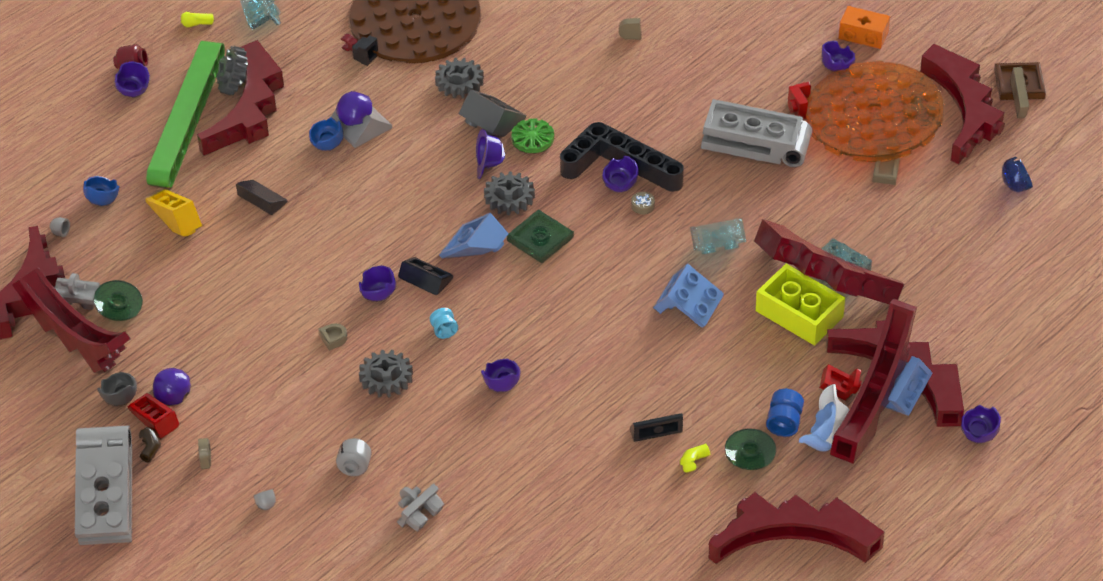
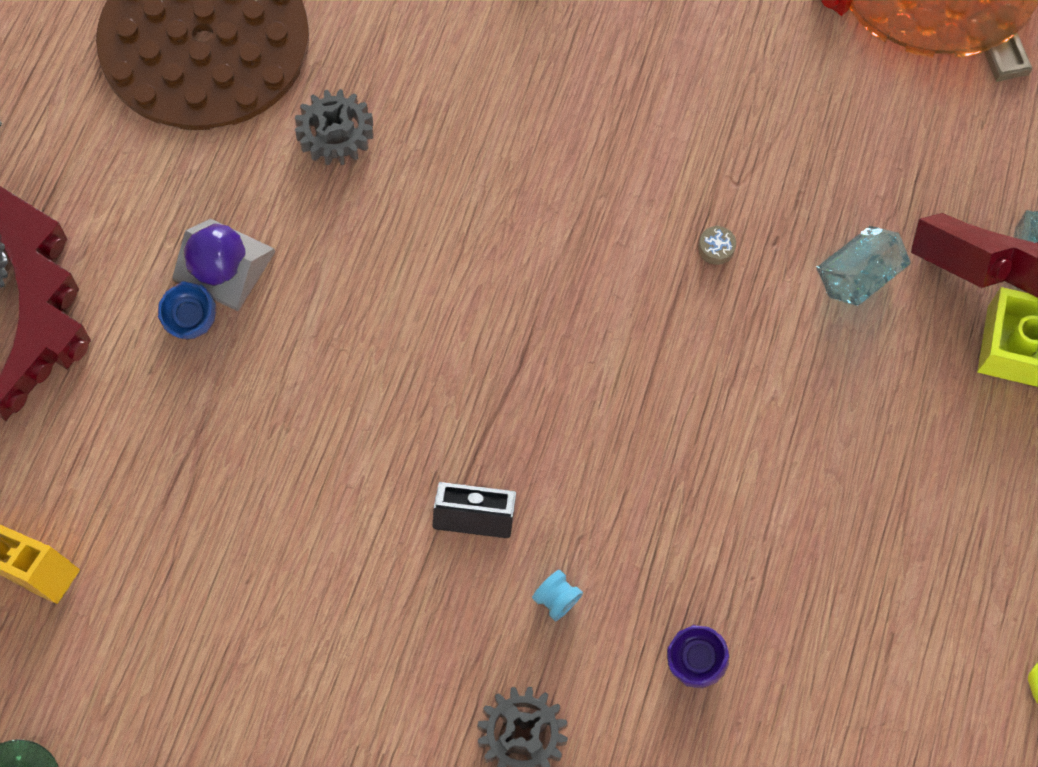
camera: 30 degrees left, 20 degrees up
(260, 196) = (141, 465): black slope -> none
(333, 335) = (396, 688): dark tan tile -> none
(361, 49) = (157, 128): black piece -> none
(377, 283) = (418, 565): dark purple hair -> none
(476, 238) = (517, 416): medium blue slope -> none
(488, 152) = (453, 251): dark purple piece -> none
(490, 113) = (416, 175): dark grey slope -> none
(509, 193) = (519, 314): dark grey gear -> none
(532, 136) = (495, 188): bright green wheel -> none
(540, 236) = (607, 368): clear green plate -> none
(610, 143) = (648, 176): black beam -> none
(620, 174) = (666, 211): dark purple hair -> none
(657, 427) = (964, 645): black slope -> none
(691, 295) = (876, 386): medium blue bracket -> none
(756, 133) = (812, 67): light grey hinge -> none

